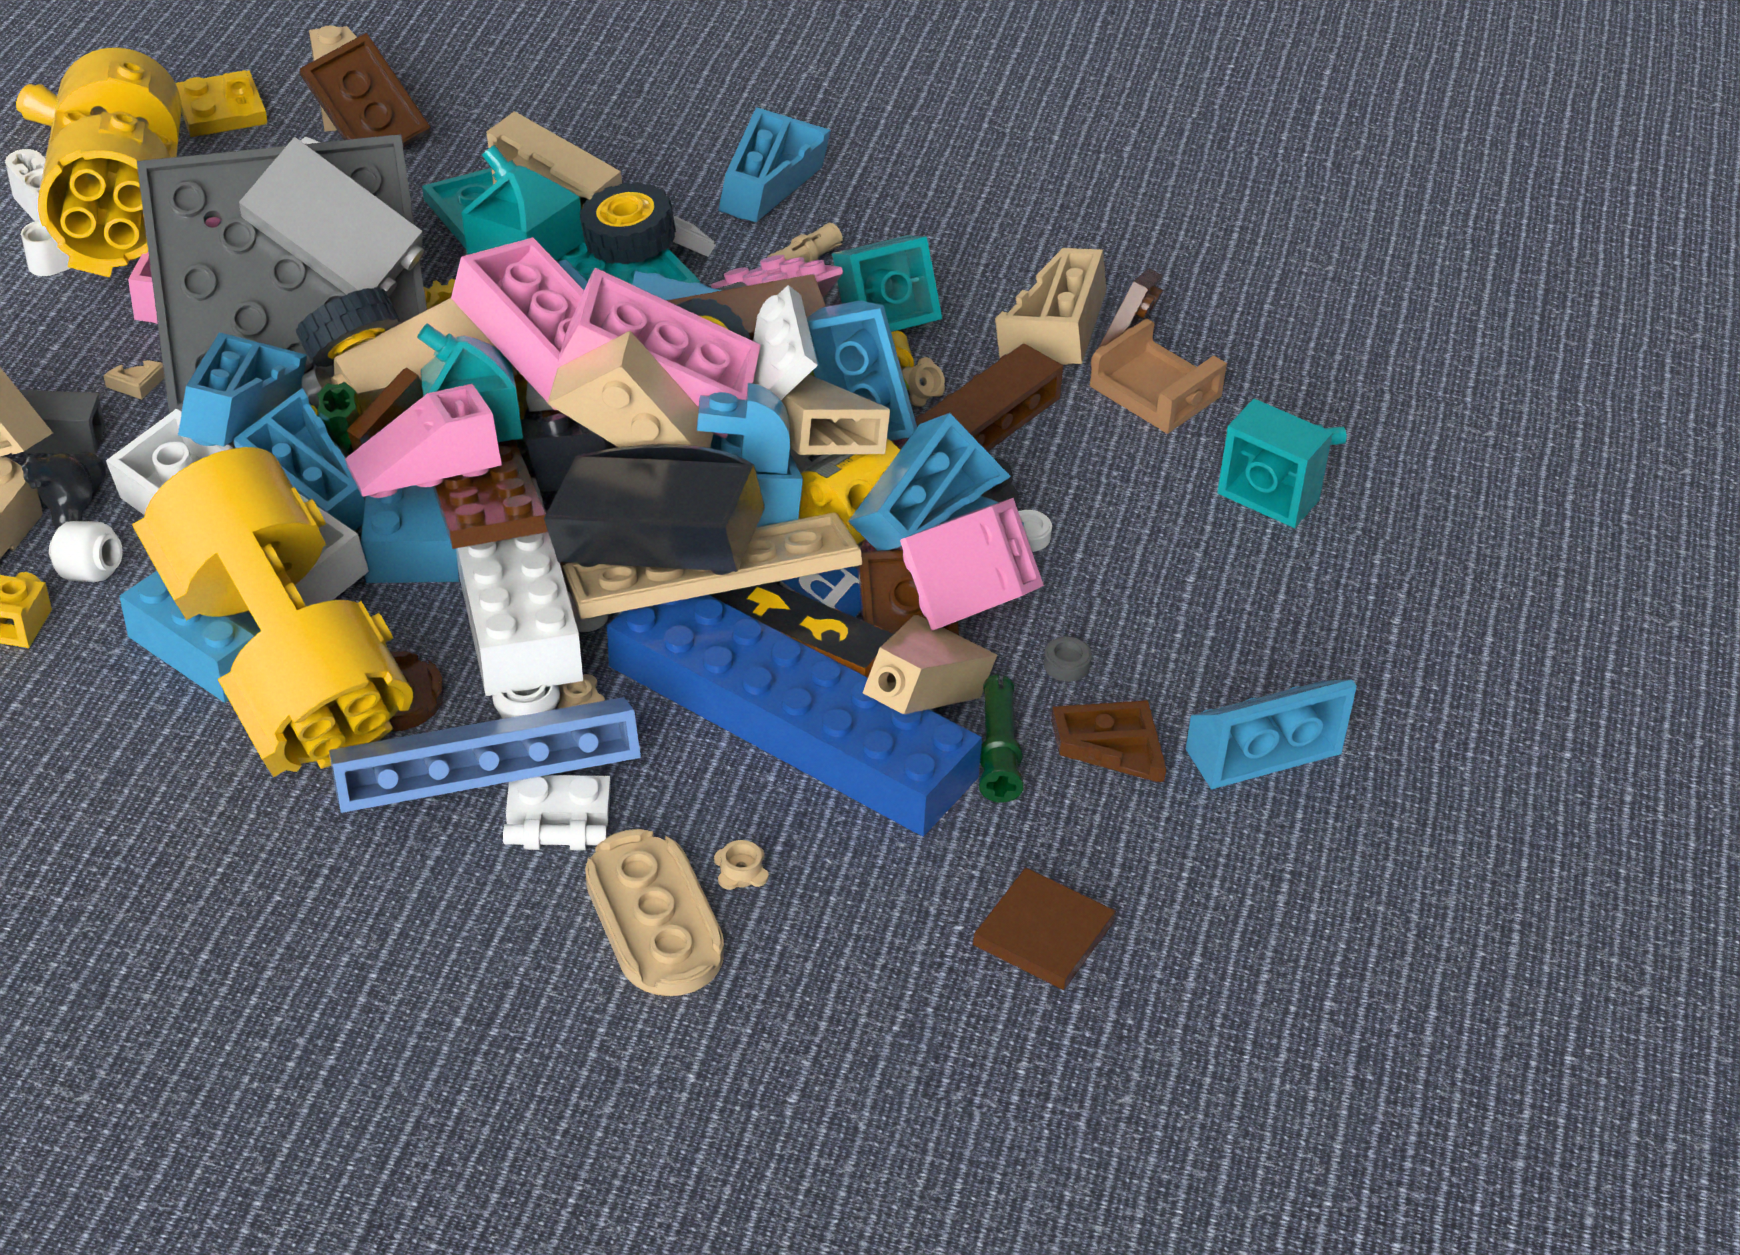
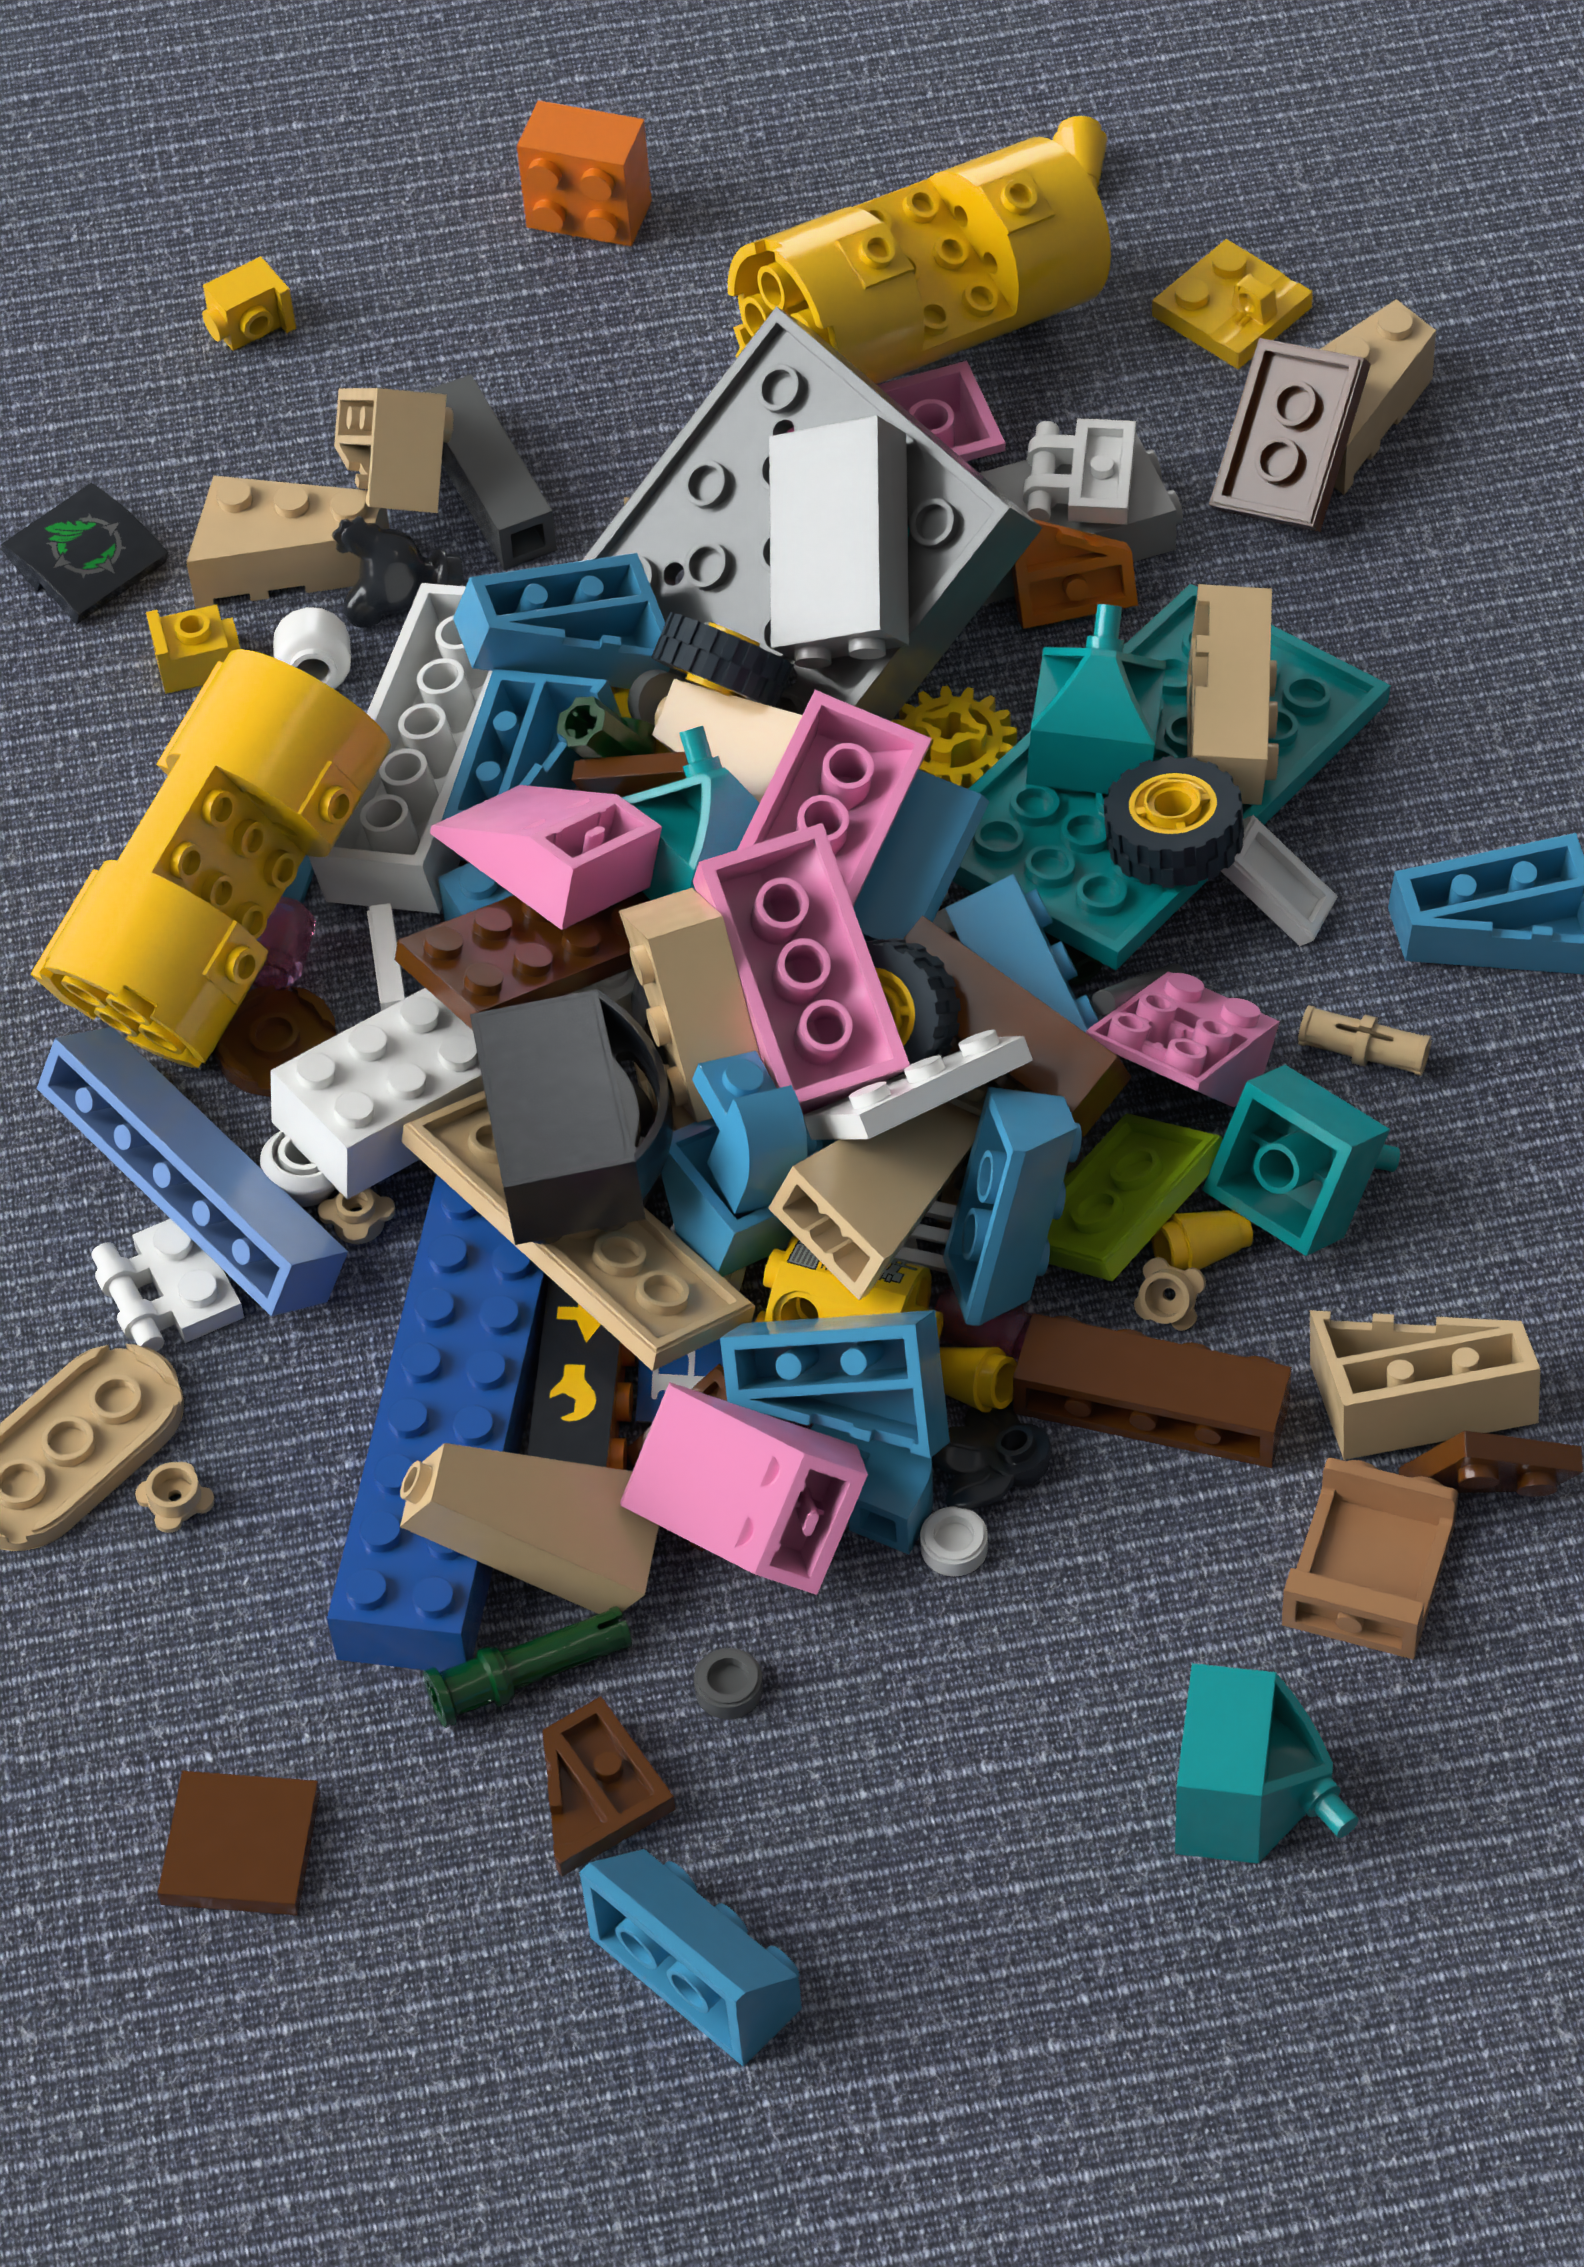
camera: 70 degrees right, 10 degrees up
(401, 607) = (384, 946): none -> white tile

